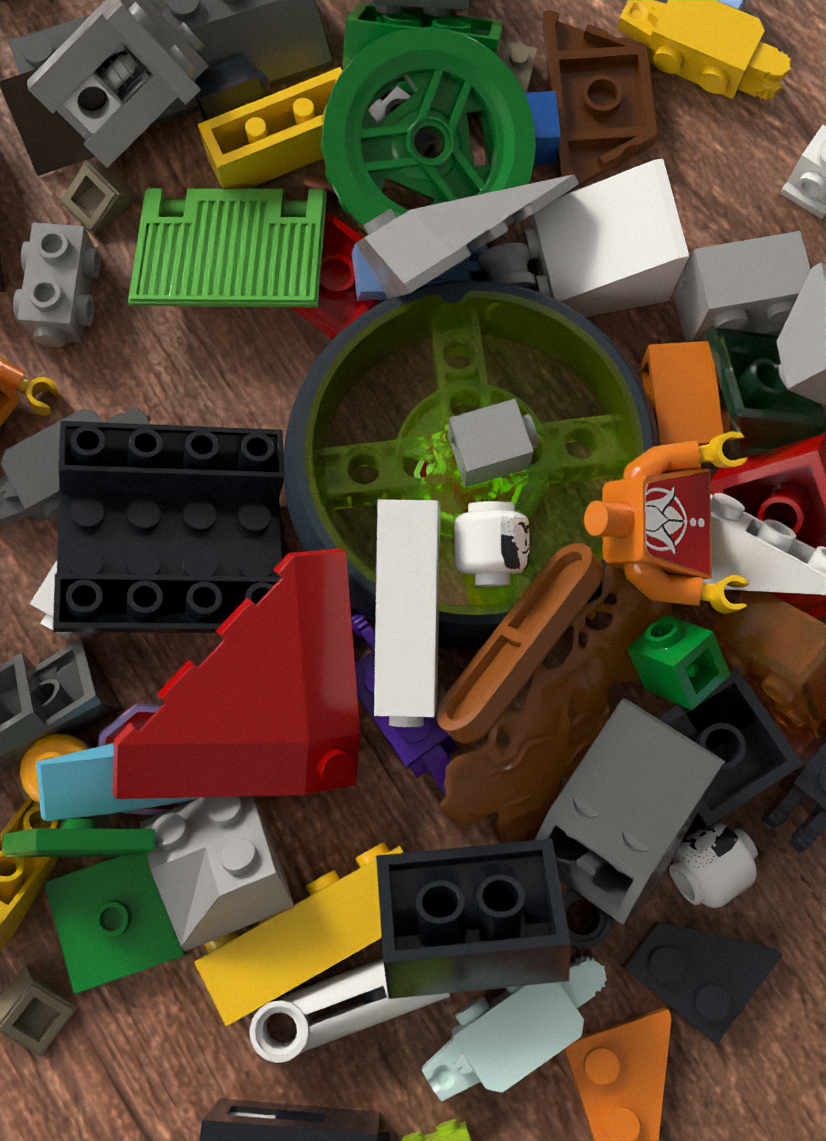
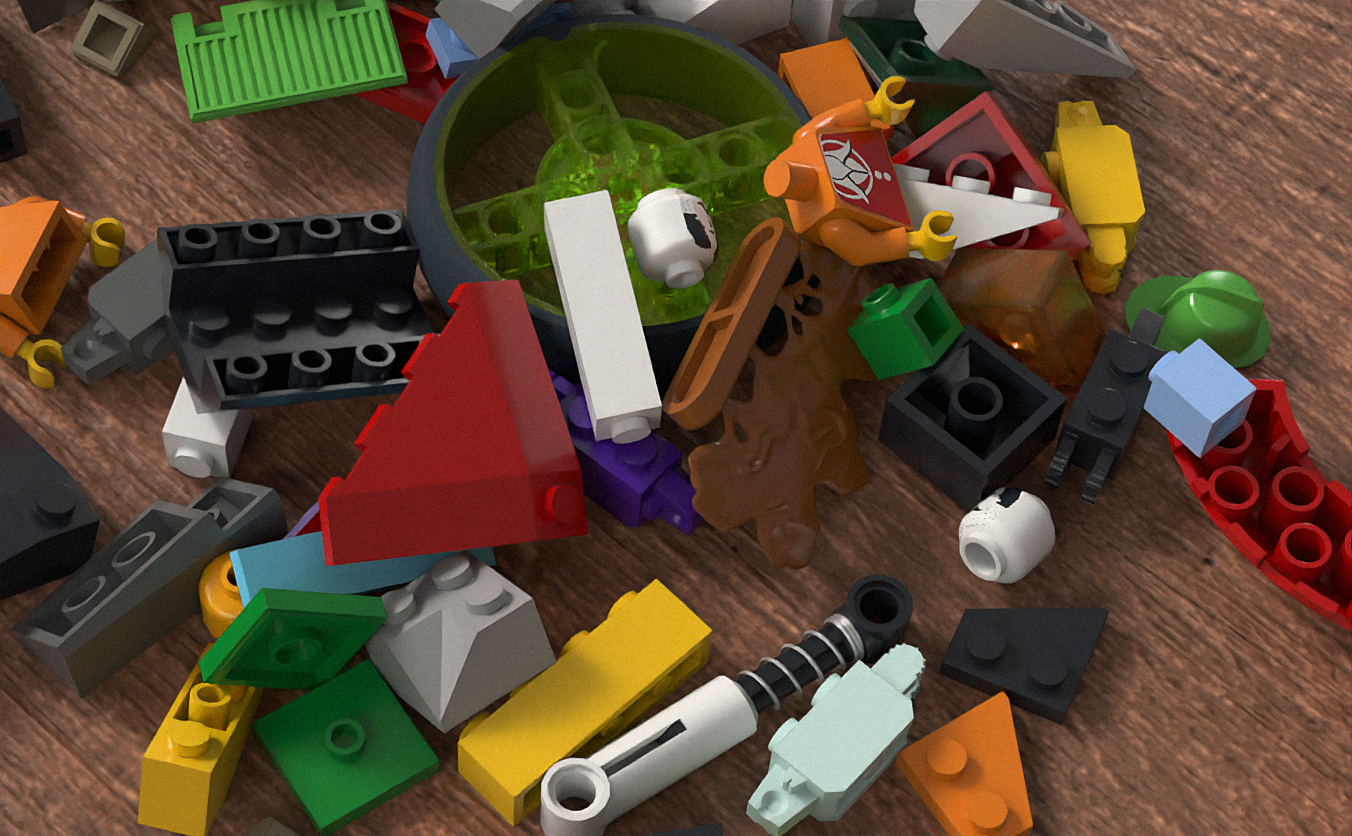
camera: 20 degrees left, 20 degrees down
(57, 284) = (95, 136): light grey brick -> none
(472, 919) = (760, 614): black slope -> none
(492, 442) = (643, 150): light grey brick -> none
(628, 810) = (893, 479): dark grey slope -> none

